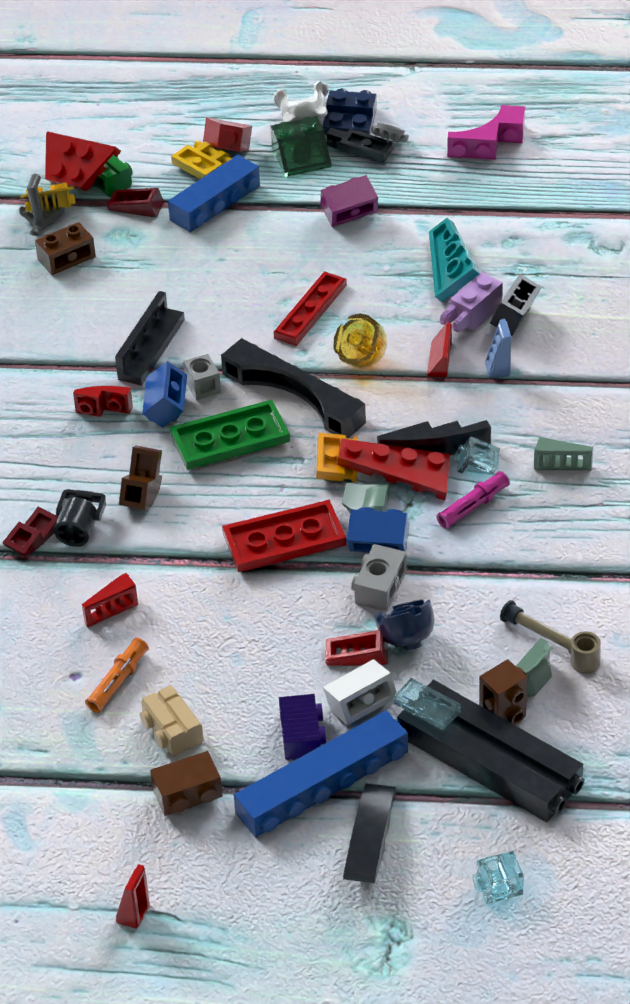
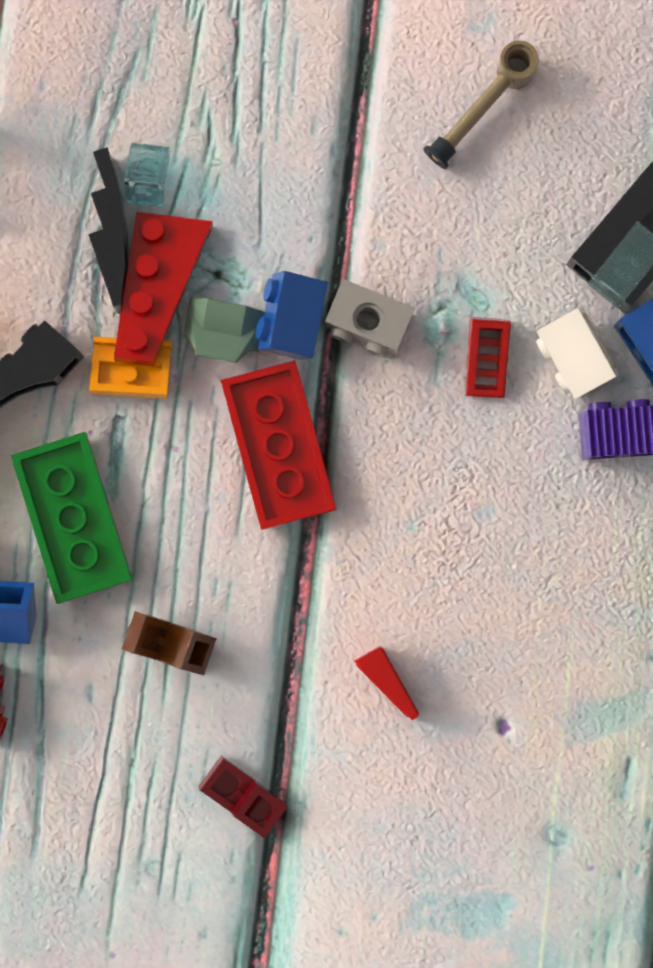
camera: 95 degrees left, 40 degrees up
(77, 516) = (238, 733): black piece -> none
(134, 651) = (504, 662): orange pin -> none
(171, 721) = (606, 597): tan brick -> none
(406, 624) = (463, 286): dark blue cylinder -> none
(482, 493) = (221, 179): dark pink pin -> none
(504, 691) = (604, 168): reddish brown brick -> none
(537, 666) = (545, 131): sand green slope -> none
(553, 453) = (151, 71): sand green slope -> none

